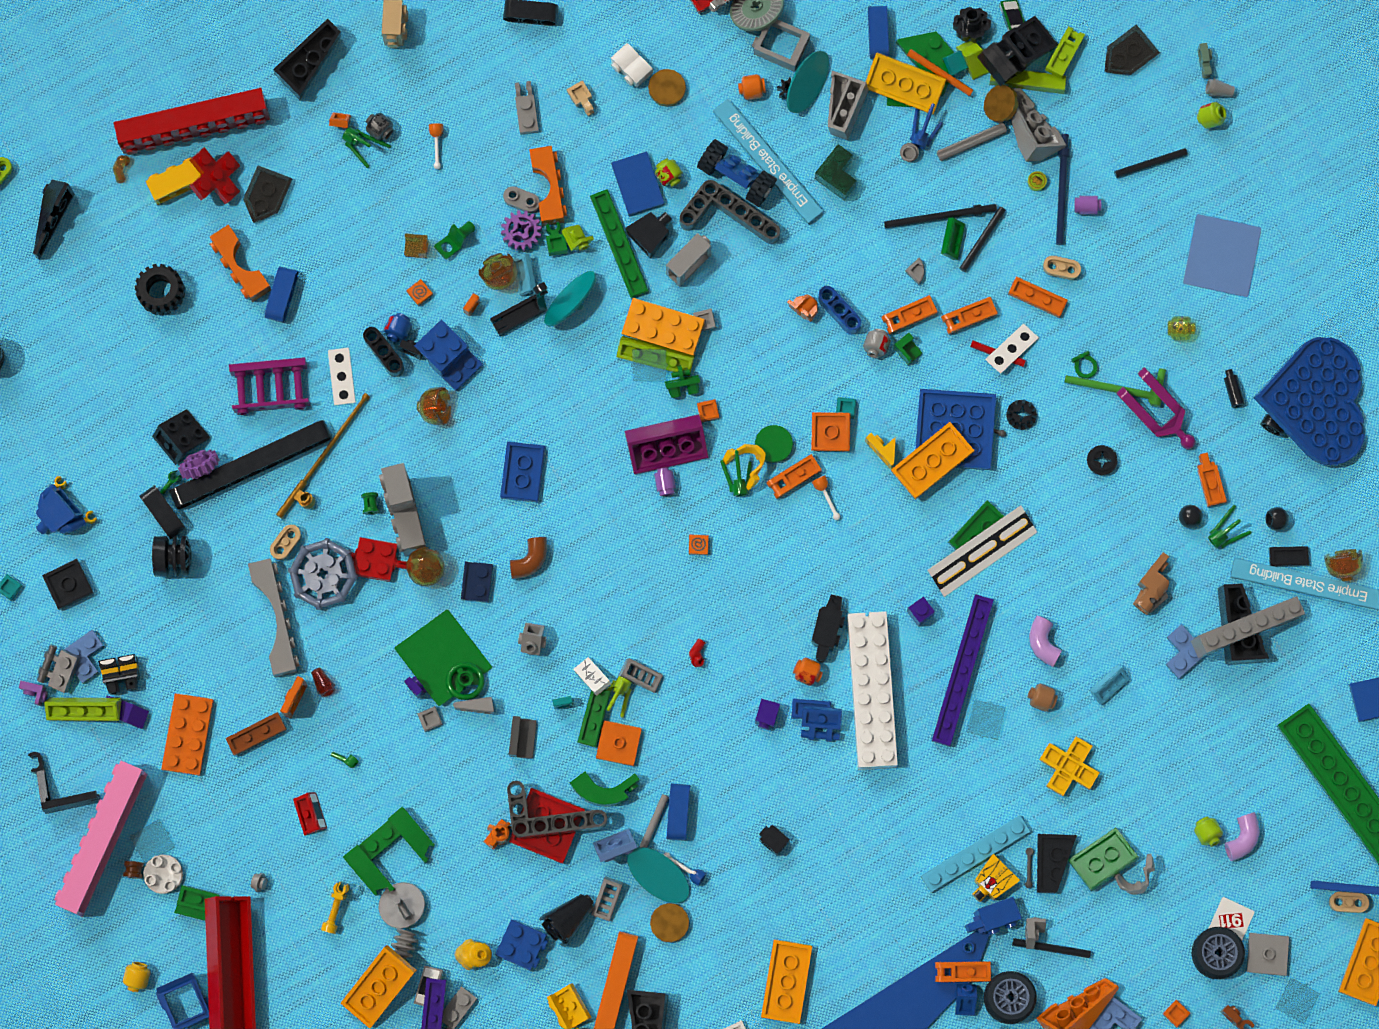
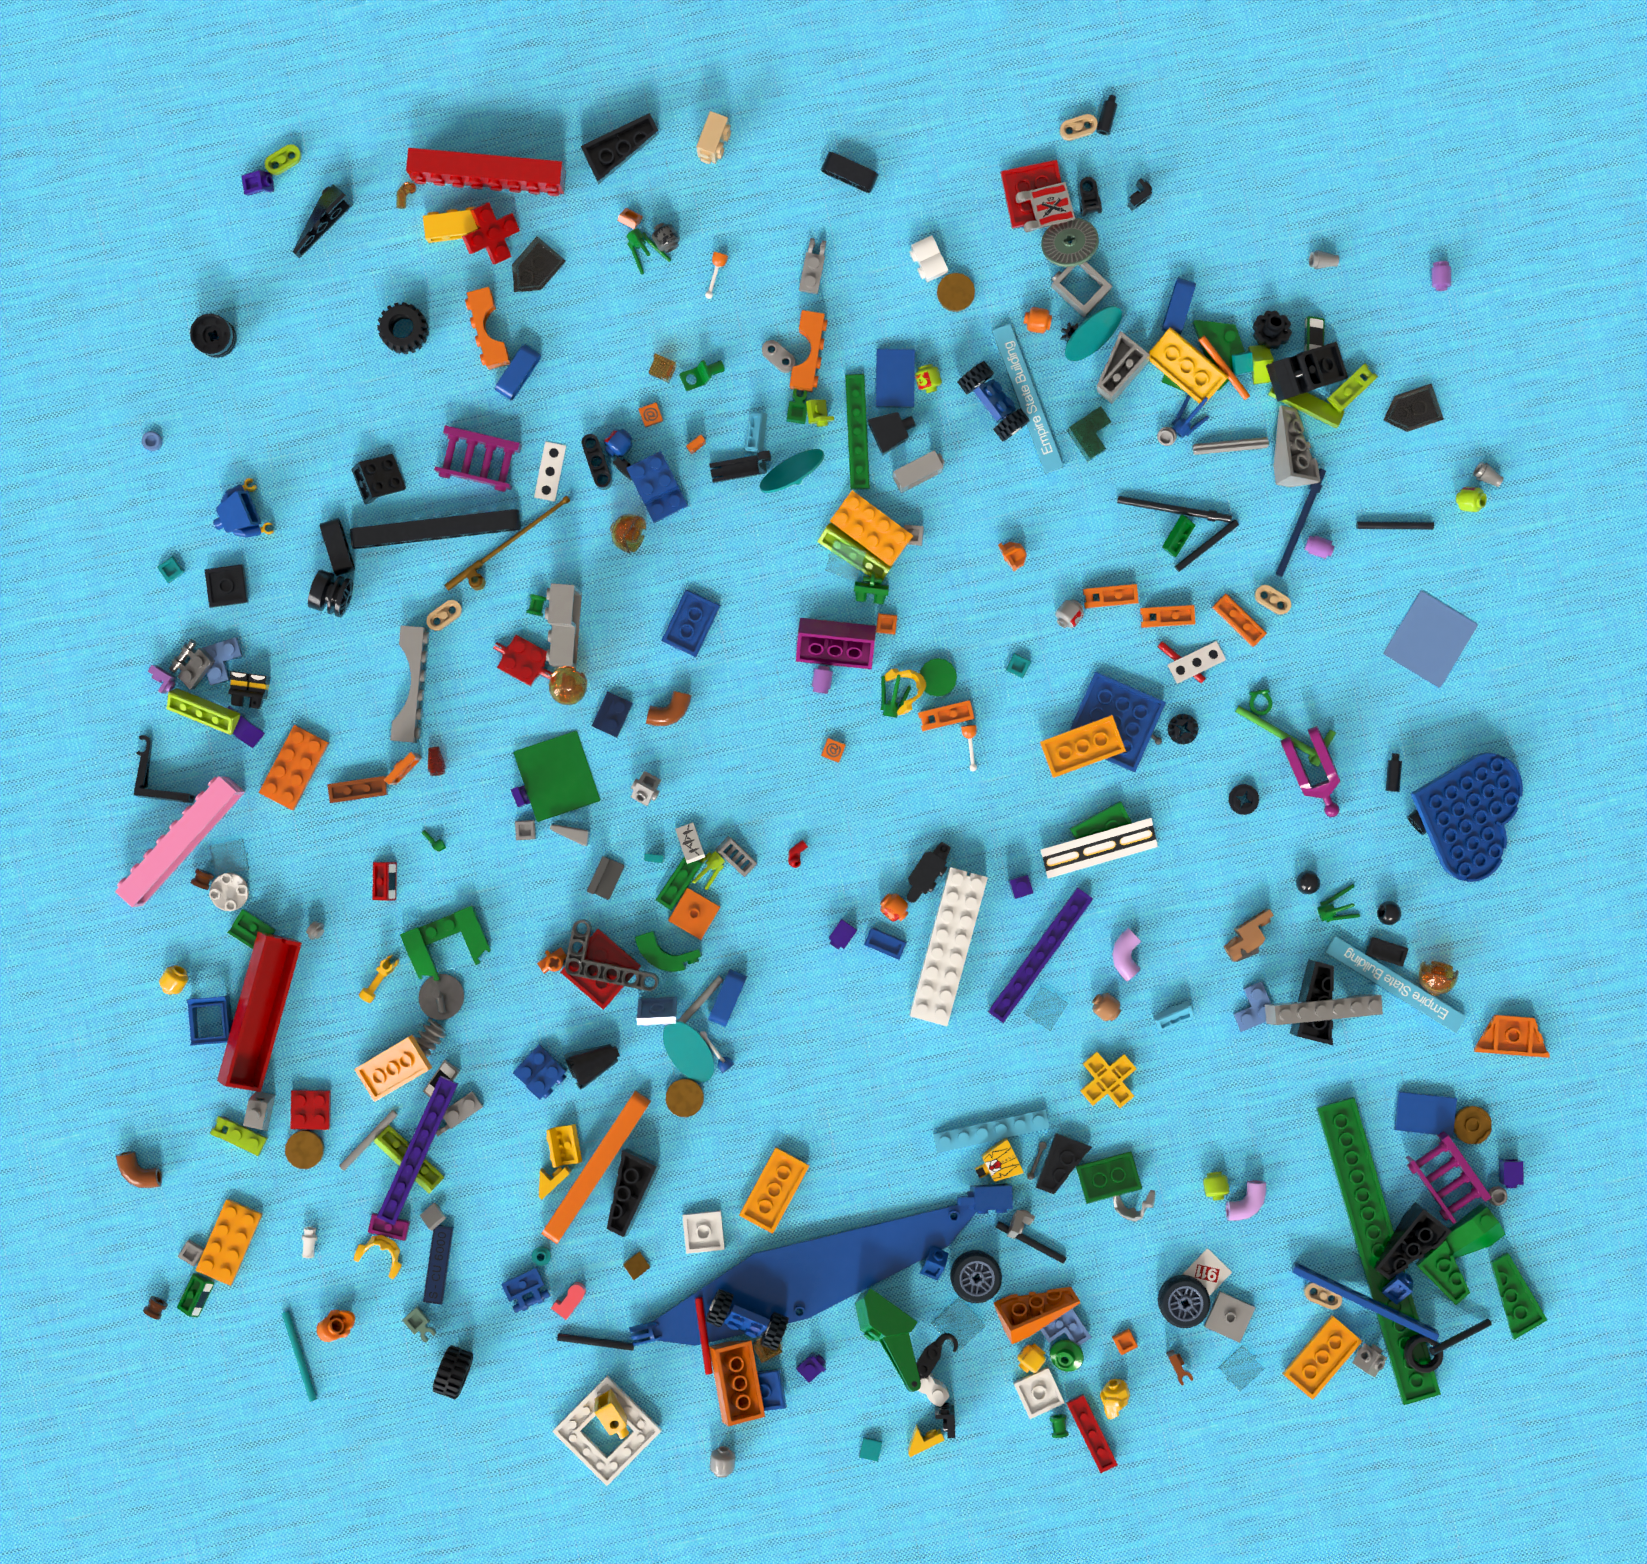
camera: 15 degrees right, 10 degrees up
(171, 476) = (356, 518): green hand -> none
(198, 464) = (385, 513): medium lavender gear -> none
(314, 567) = (476, 666): sand blue plate -> none
(465, 674) = (582, 811): green piece -> none
(473, 954) = (492, 1066): yellow head -> none
(498, 271) = (732, 421): clear orange cylinder -> none
(526, 226) = (775, 386): medium lavender gear -> none
(580, 96) = (870, 272): tan plate -> none
(607, 916) = (645, 1043): light grey slope -> none
(729, 209) = (974, 434): dark grey beam -> none
(773, 839) = (807, 1054): black brick -> none
(821, 718) = (892, 957): blue plate -> none
(830, 431) = (996, 684): orange plate -> none
(836, 301) = (1046, 559): blue beam -> none
(885, 453) = (1041, 724): yellow slope -> none
(907, 349) = (1097, 629): green panel -> none
(916, 271) = (1132, 555): light grey tile -> none
(964, 971) = (941, 1238): orange plate -> none
(1000, 103) = (1272, 418): pearl gold tile -> none
(1037, 181) = (1279, 506): tile -> none
(1181, 328) = (1365, 698): clear yellow head -> none
(1205, 56) = (1485, 438): sand green plate -> none
(1210, 481) = (1339, 855): orange hinge -> none

